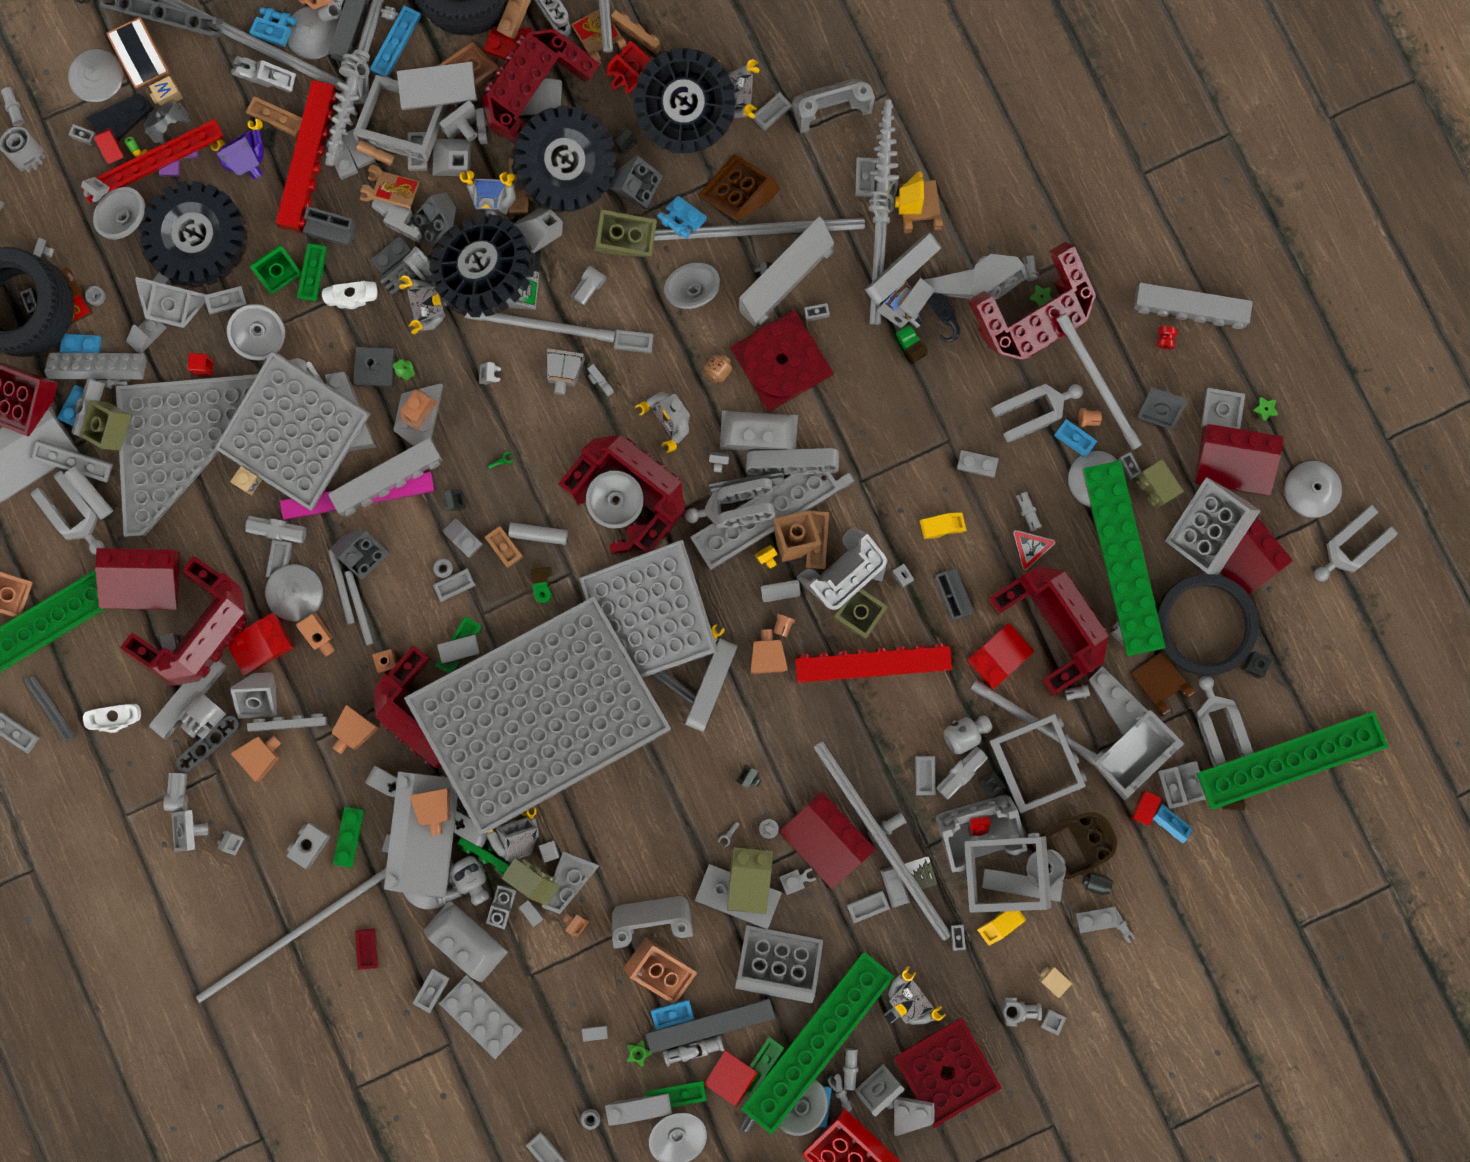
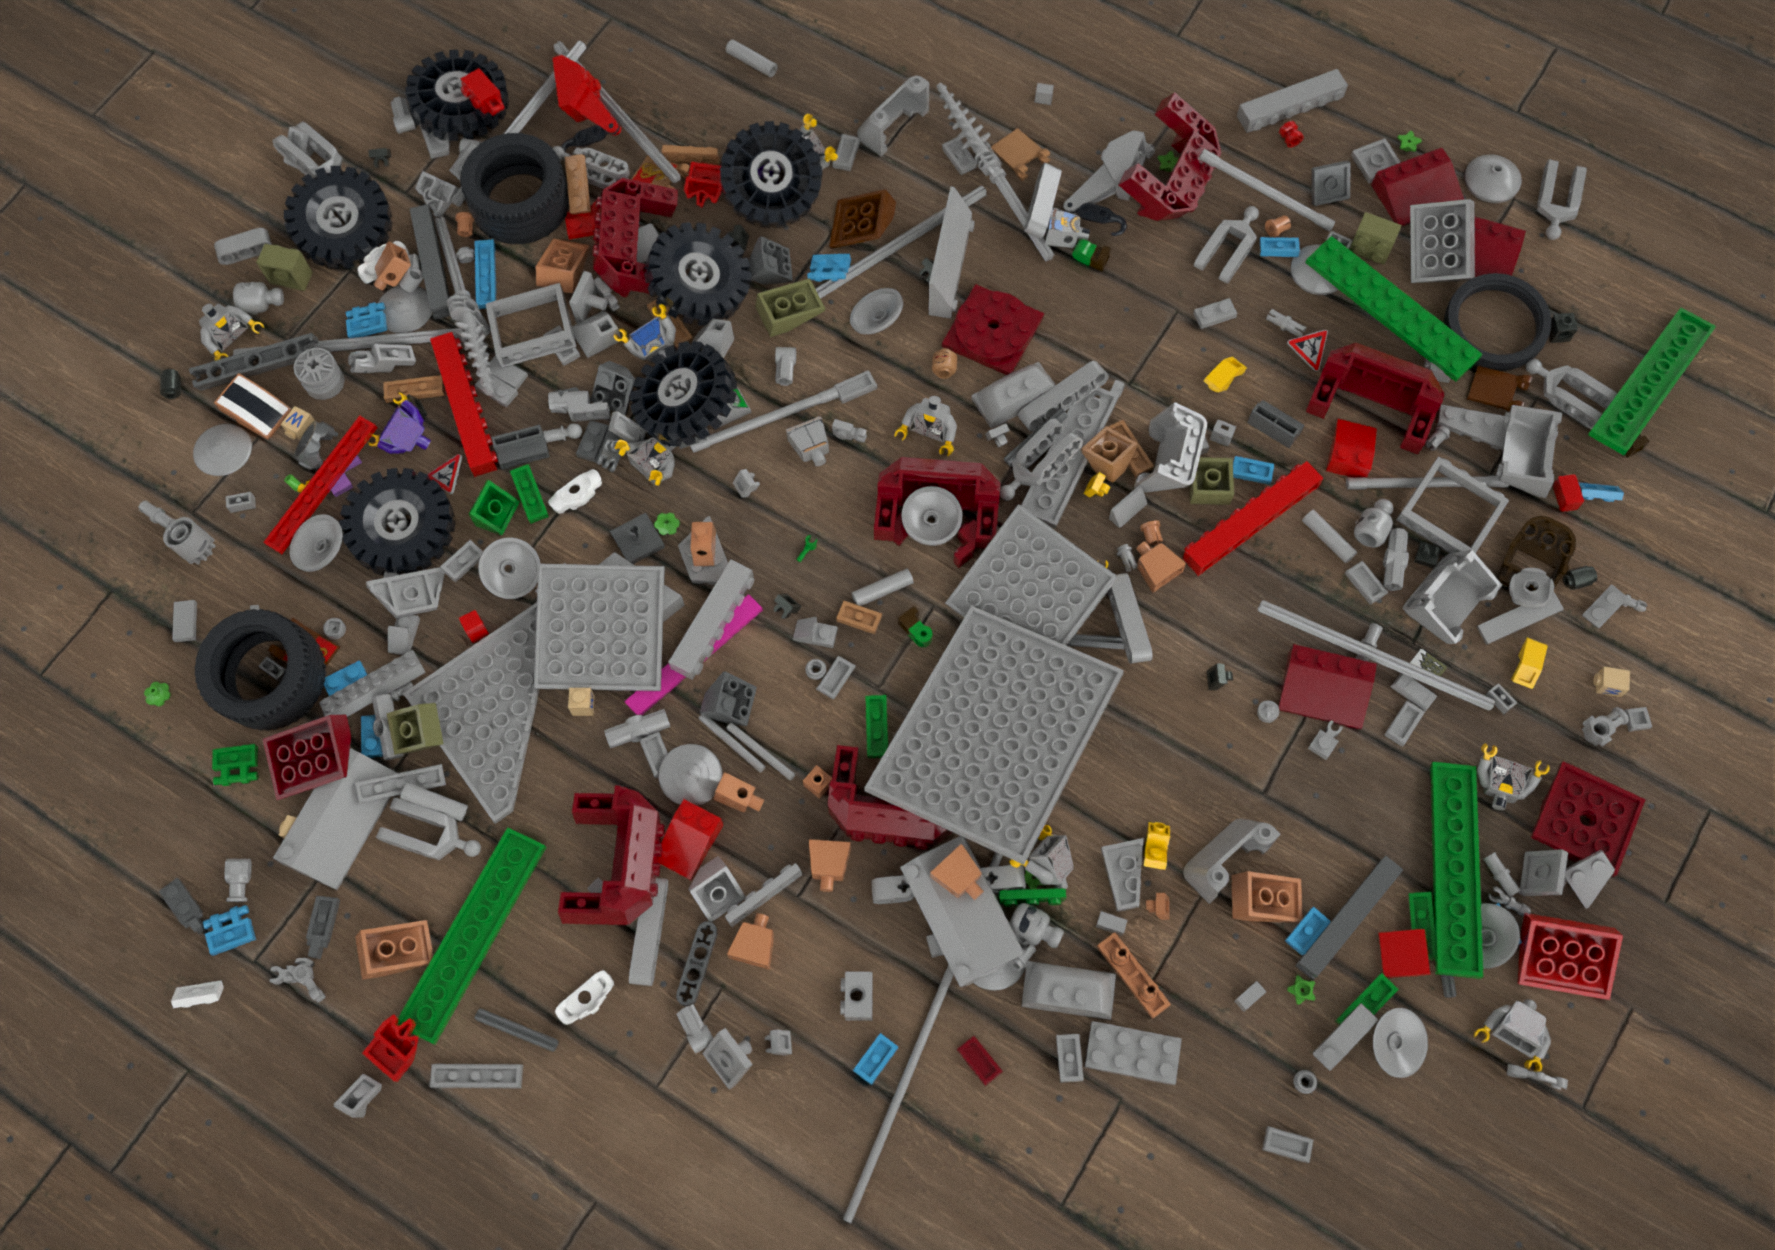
camera: 30 degrees left, 15 degrees down
(94, 187) = (282, 533): light grey tile -> none
(109, 145) = (271, 494): red piece -> none
(121, 116) = (267, 470): black wing -> none
(137, 578) = (531, 848): dark red slope -> none
(200, 716) = (675, 937): light grey gear -> none
(205, 56) = (319, 373): none -> light grey wheel
(255, 214) = (447, 474): none -> piece
(291, 899) = (875, 1059): none -> dark azure plate
(348, 837) = (890, 965): green plate -> none
(372, 151) = (520, 365): medium nougat piece -> none
(379, 237) = (573, 431): none -> light grey pin
(390, 188) = (555, 385): medium nougat flag -> none
(436, 85) = (547, 277): light grey tile -> none
(458, 649) = (880, 726): light grey tile -> none
(501, 906) = (1079, 935): light grey slope -> none
(520, 962) = (1133, 975): none -> nougat plate
(531, 881) = (1094, 888): olive brick -> none
(549, 851) = (1089, 853): light grey piece -> none
(606, 877) = (1156, 845): none -> yellow slope
(690, 1050) = (1349, 953): light grey piece -> none
(715, 892) = (1285, 787): light grey plate -> none
(728, 835) = (1237, 738): light grey hand -> none
(749, 631) = (1126, 556): none -> light grey pin
(749, 880) = (1287, 761): olive slope -> none
(779, 964) = (1369, 822): light grey slope -> none
(816, 312) = (994, 276): light grey piece -> none
(903, 623) = (1252, 470): none -> dark azure plate
(911, 196) = (1011, 143): yellow slope -> none
(917, 298) = (1072, 213): light grey tile -> none
(923, 719) = (1329, 536): none -> light grey piece
(979, 826) = (1446, 591): red plate -> none
(980, 161) = (1044, 93): none -> light grey piece
(1043, 873) = (1524, 639): light grey window -> none
(1181, 784) = (1581, 456): light grey slope -> none

